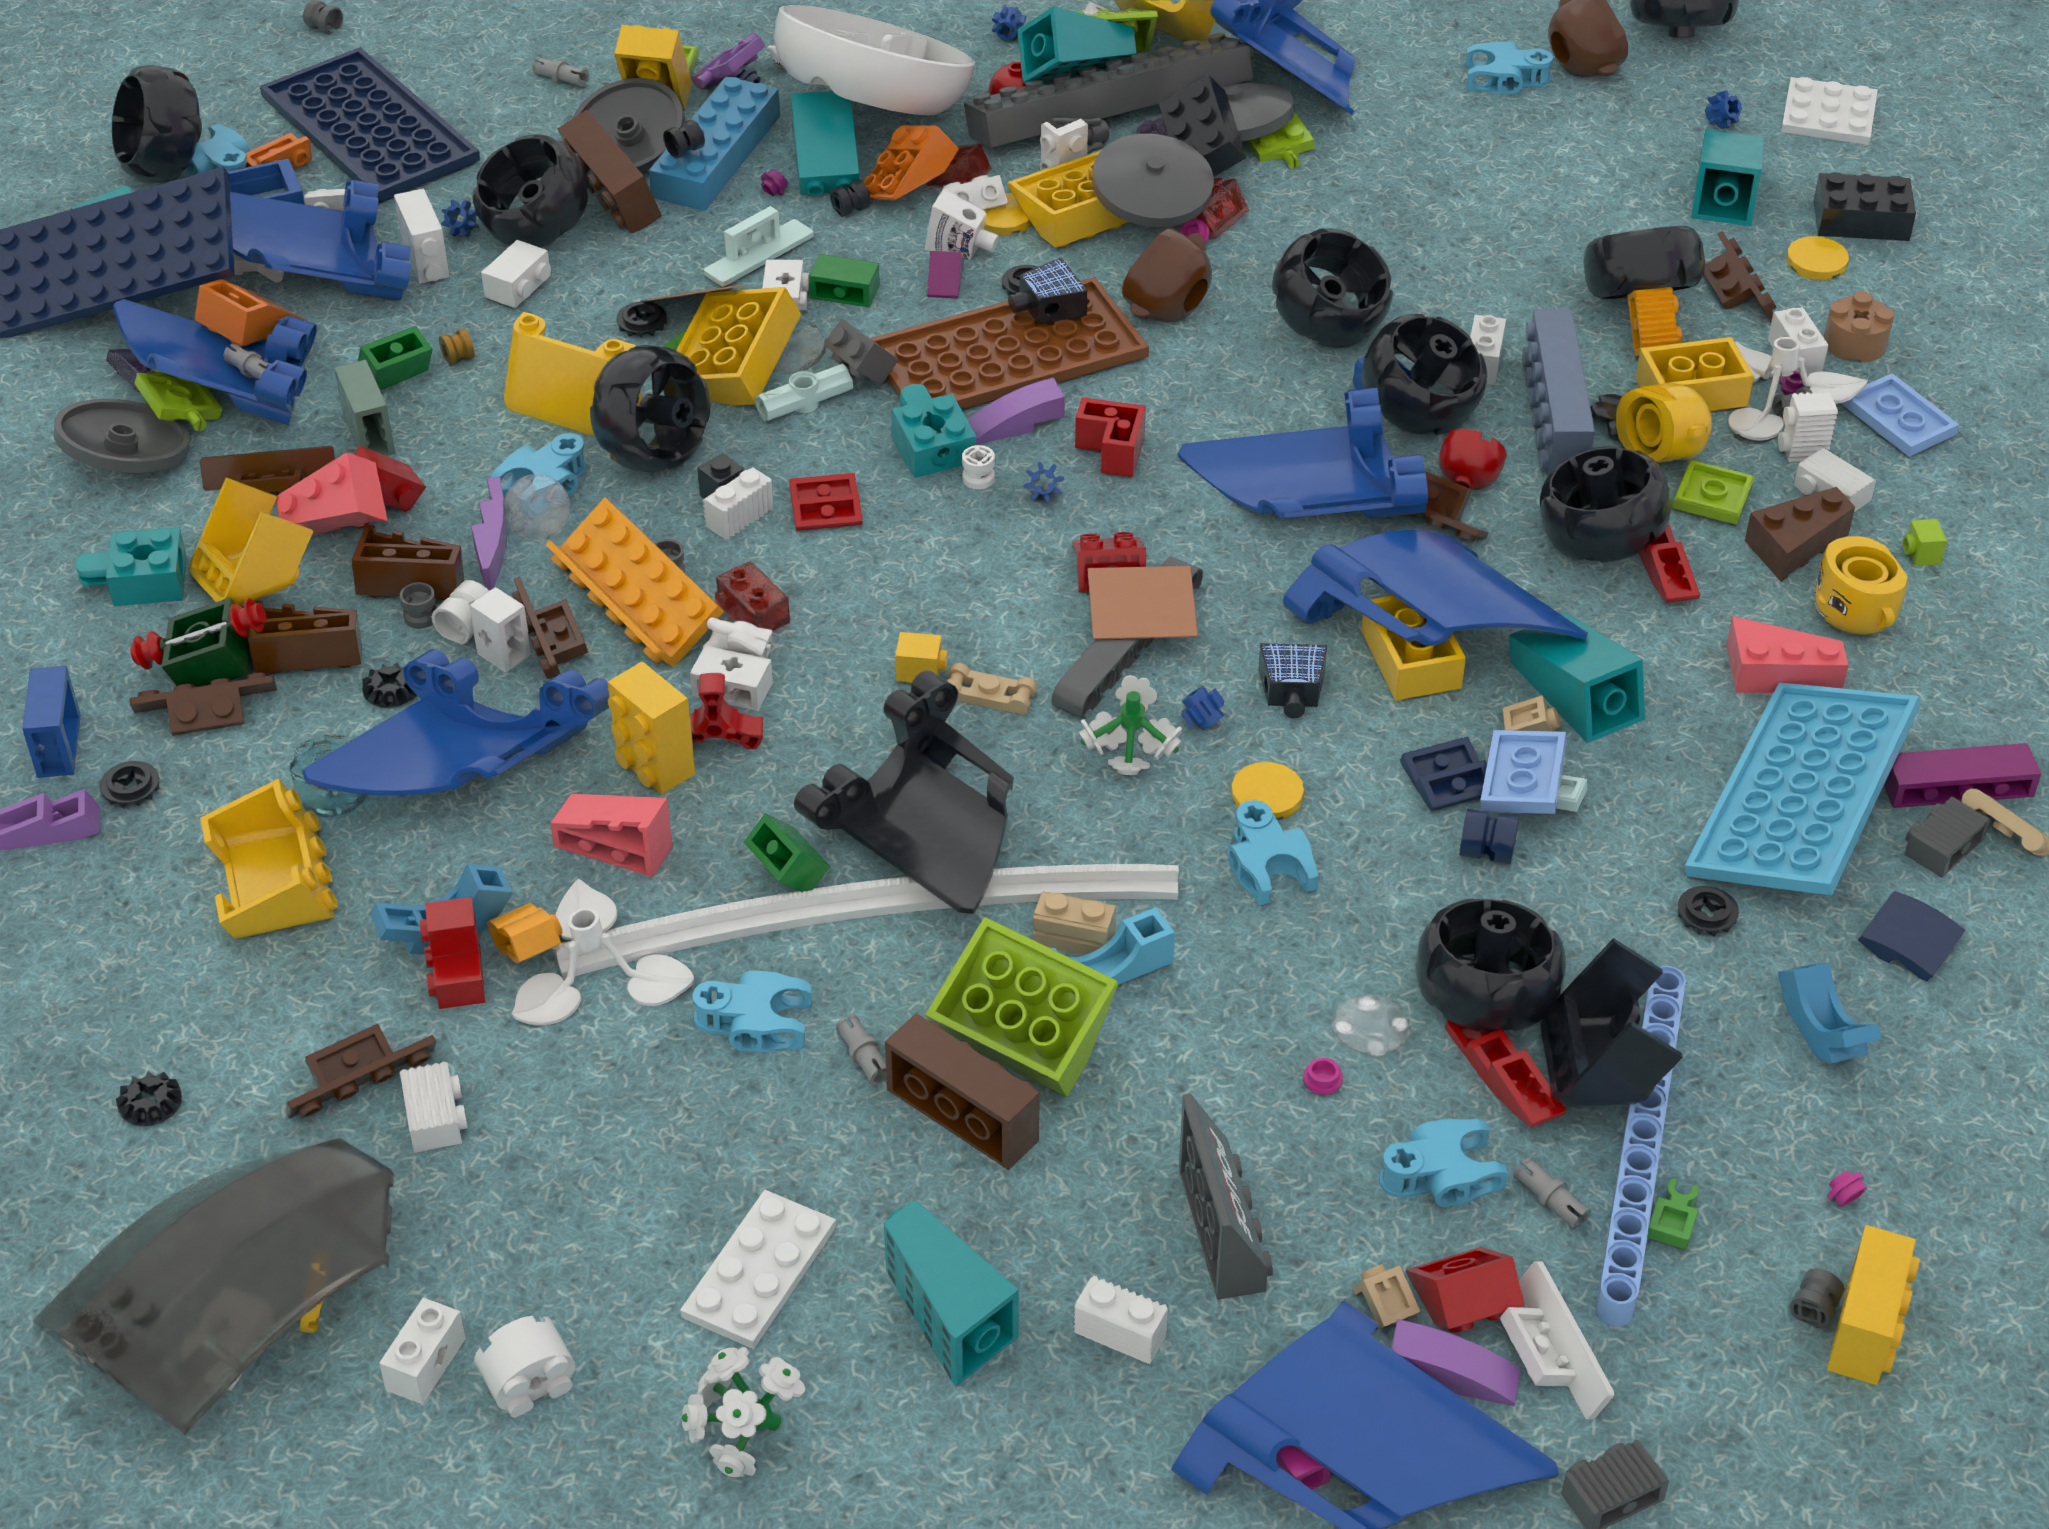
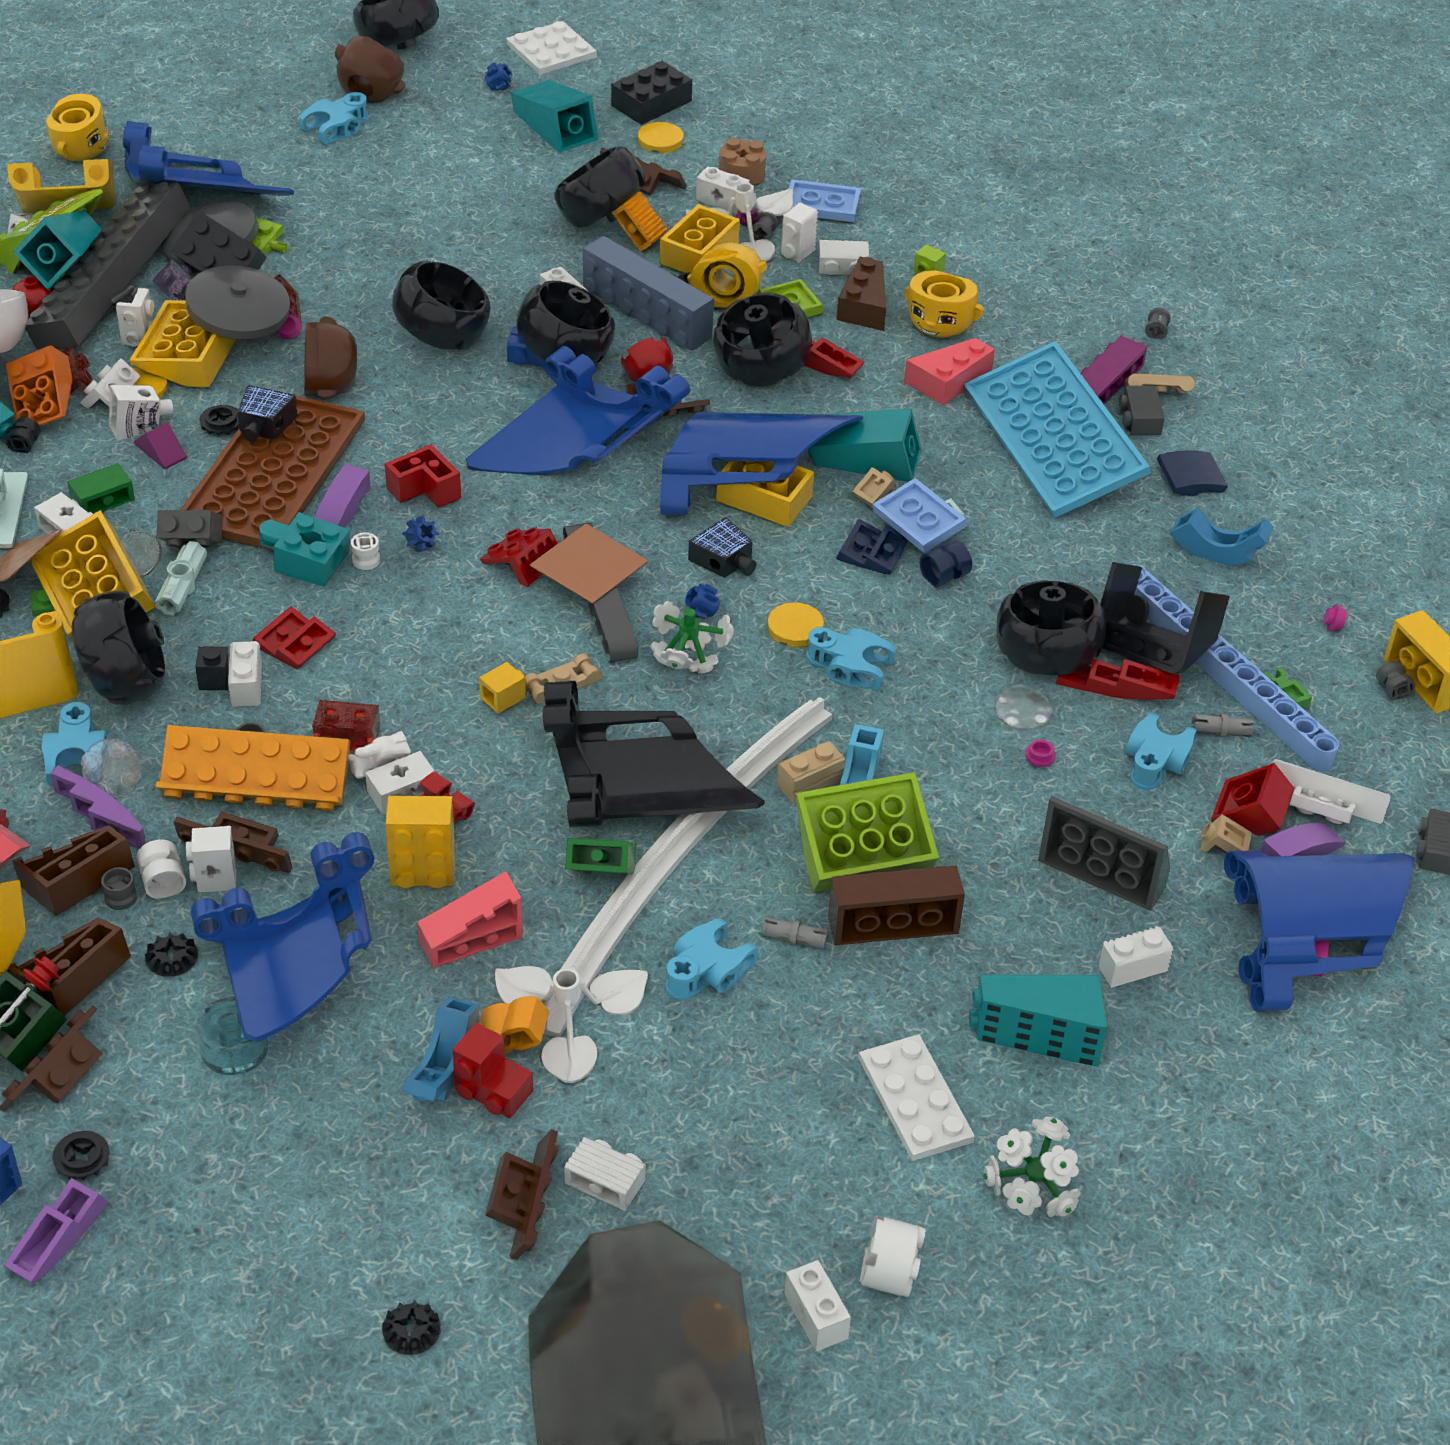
camera: 50 degrees left, 0 degrees up
(269, 862) = (273, 1122): yellow windscreen -> none
(1717, 901) = (1086, 520): black gear -> none

